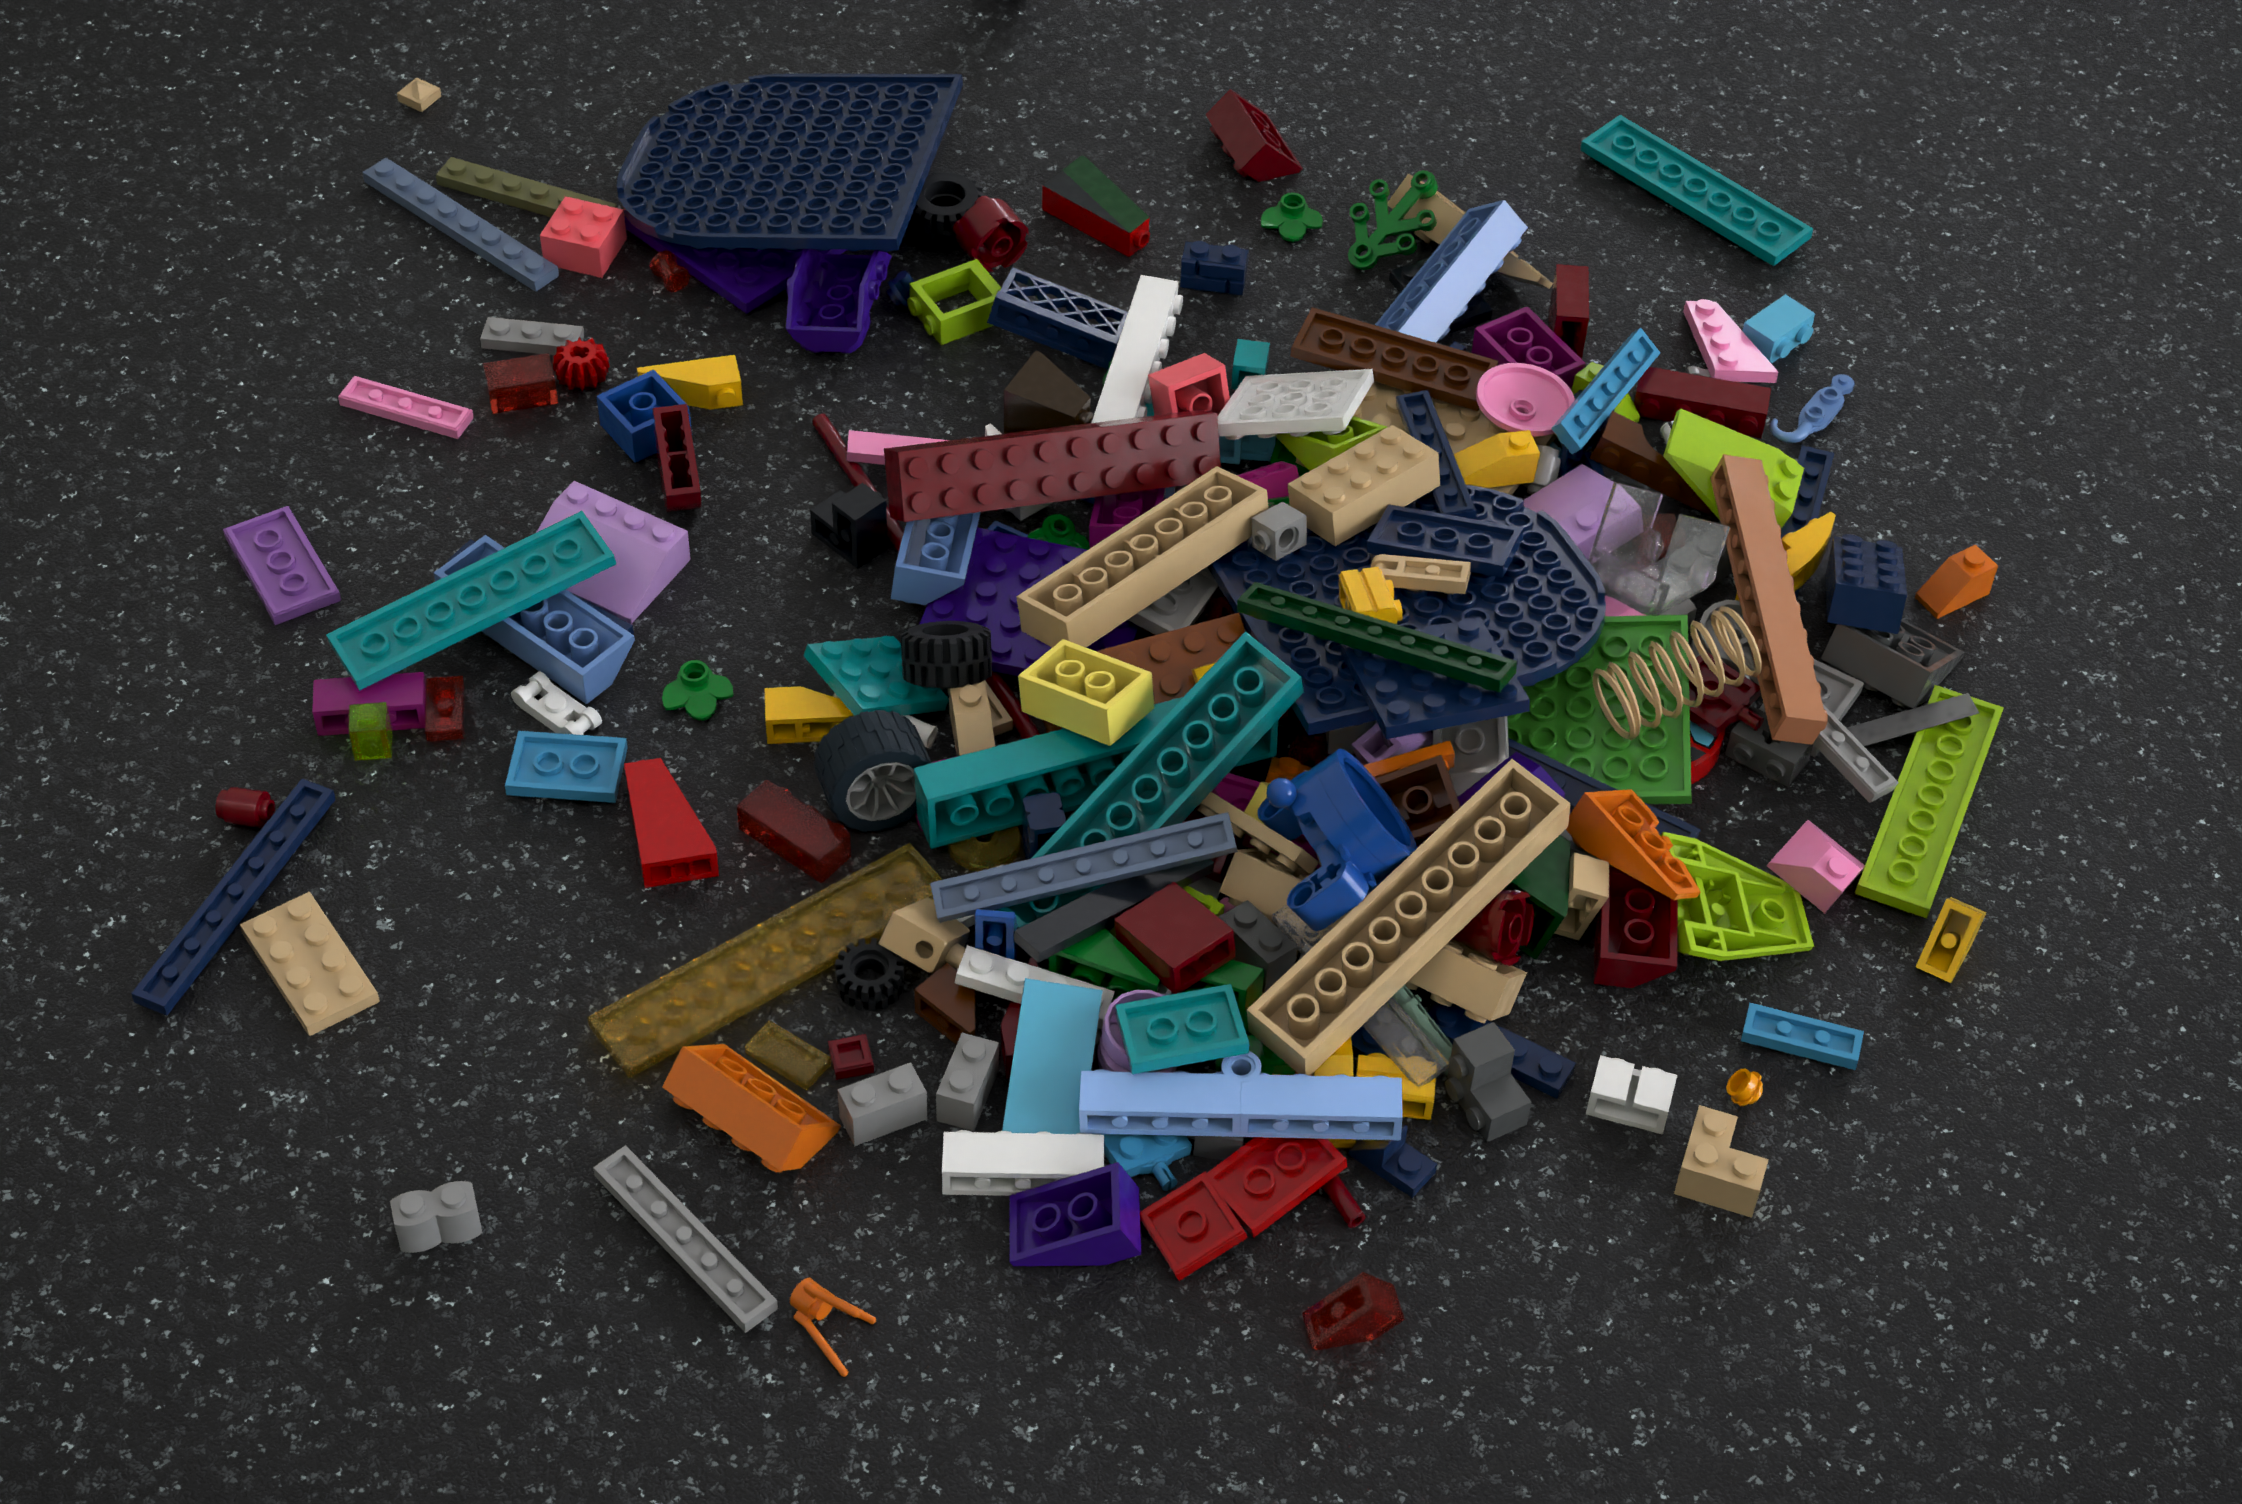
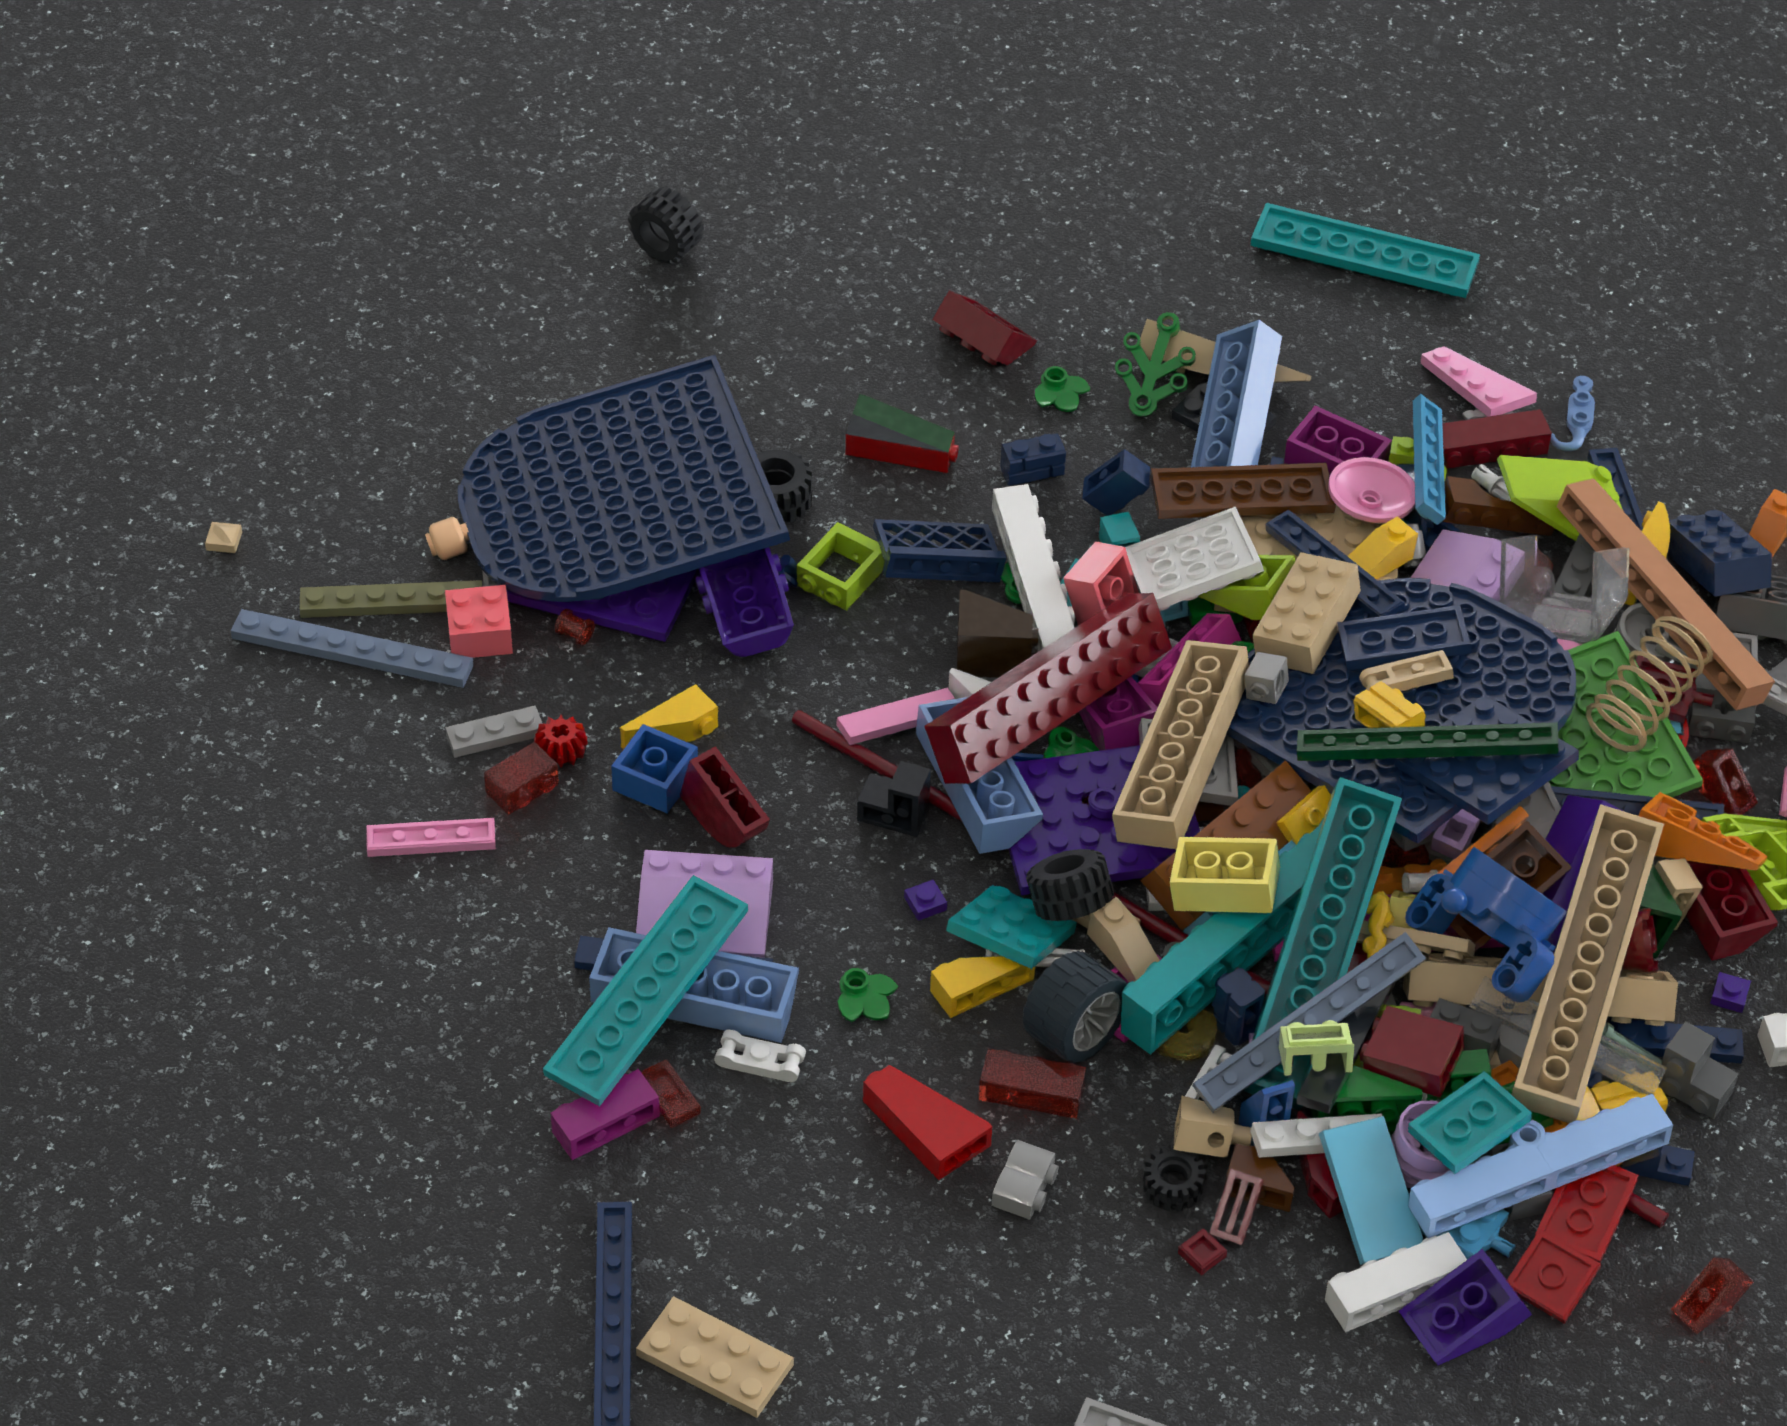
camera: 25 degrees left, 0 degrees up
(244, 806) = (565, 1246): dark red brick -> none
(282, 565) = (429, 1021): medium lavender tile -> none
(370, 731) = (625, 1138): clear neon green brick -> none
(566, 766) = (807, 1103): dark azure plate -> none
(607, 156) = (447, 538): none -> light nougat head
(718, 915) = (1024, 1179): none -> light grey brick
(749, 1106) = (1157, 1325): orange slope -> none
(760, 962) = (1085, 1200): clear yellow plate -> none
(788, 1055) = (1152, 1271): clear yellow tile -> none
(820, 626) = (925, 900): none -> dark purple plate
(882, 1104) = (1260, 1279): light grey brick -> none
(893, 1051) = (1246, 1178): none -> tile
(967, 1081) = (1312, 1233): light grey brick -> none
(991, 233) = (833, 493): dark red brick -> none
(1063, 884) = (1315, 1041): none -> yellowish green window
(1229, 794) = (1379, 919): none -> yellow animal
(1275, 312) = (1116, 483): none -> dark blue brick
(1570, 305) = (1345, 392): dark red brick -> none
(1592, 1022) = (1730, 992): none -> dark purple plate
(1726, 812) = (1725, 781): none -> clear red slope
(1780, 328) = (1509, 351): medium azure brick -> none

